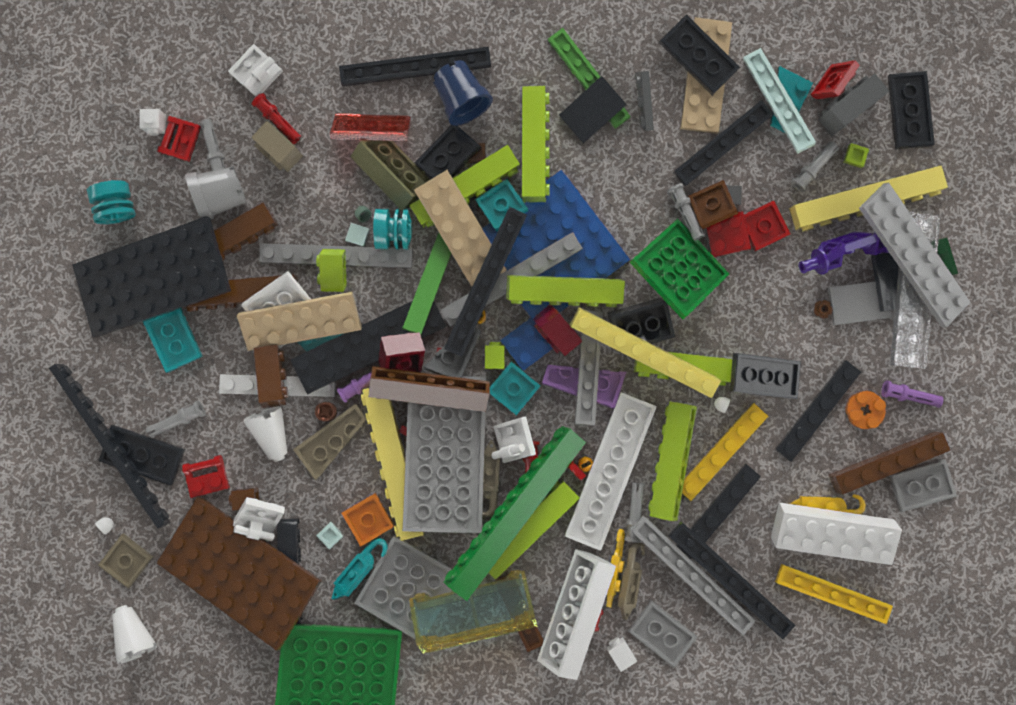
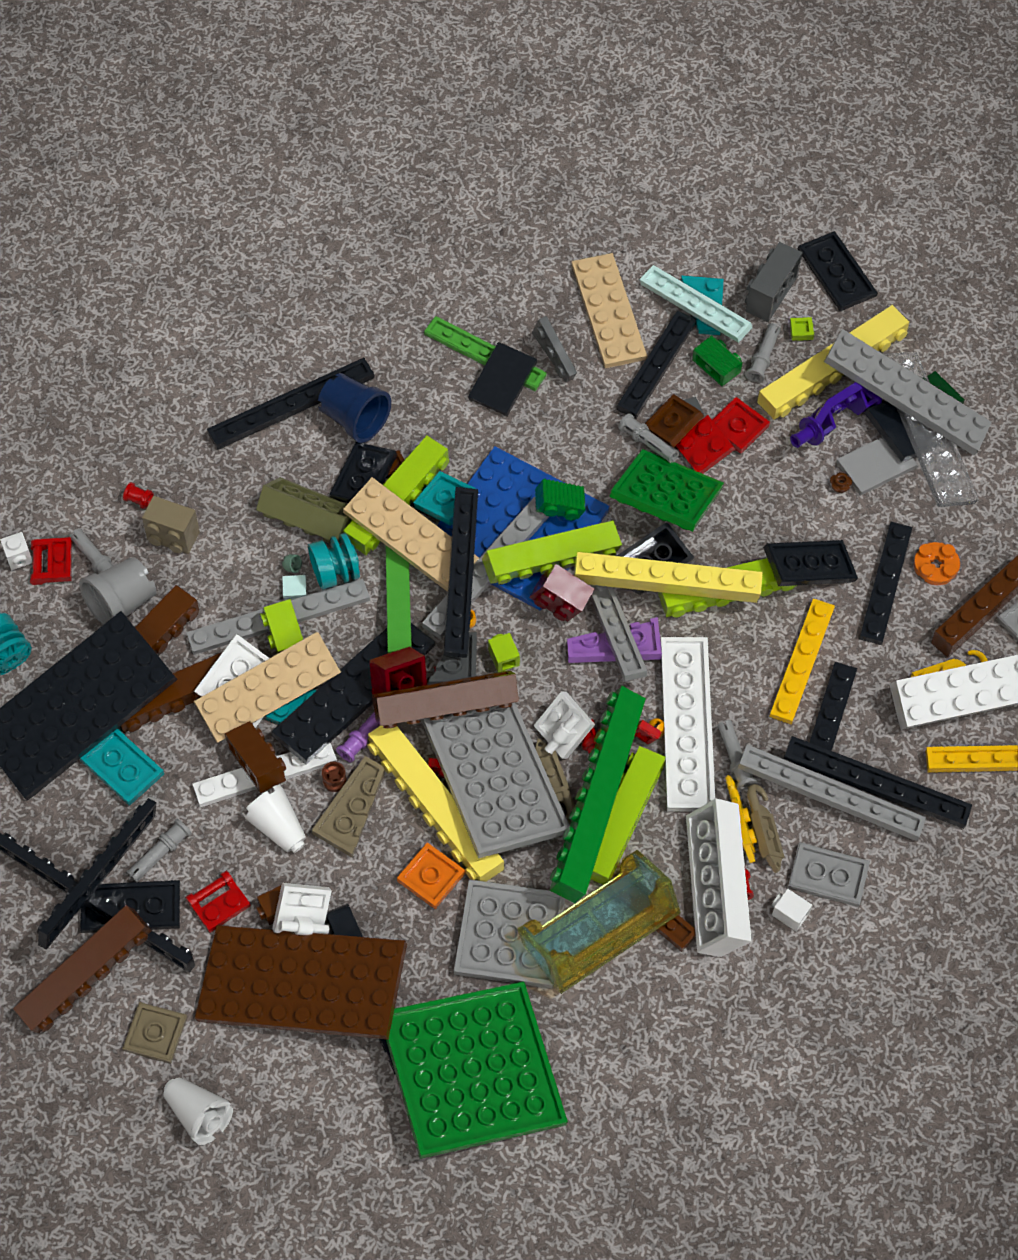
camera: 20 degrees left, 25 degrees down
(83, 501) = (82, 970): none -> reddish brown brick
(105, 525) = (114, 996): white hinge -> none
(108, 435) = (92, 878): none -> black plate
(255, 70) = (114, 465): white plate -> none
(330, 535) = (393, 912): light aqua tile -> none
(357, 569) = (441, 934): teal plate -> none
(370, 127) = (267, 473): clear red tile -> none
(513, 388) = (540, 677): teal plate -> none
(526, 344) = (534, 629): blue plate -> none
(534, 144) = (455, 430): lime brick -> none
(590, 245) = (560, 499): none -> green brick
(673, 461) = (751, 684): lime brick -> none
(699, 55) = (592, 291): black tile -> none
(722, 404) = (778, 612): white hinge -> none
(774, 159) = (717, 360): none -> green brick
(835, 80) = (744, 266): red plate -> none
(903, 393) = (967, 533): medium lavender pin -> none

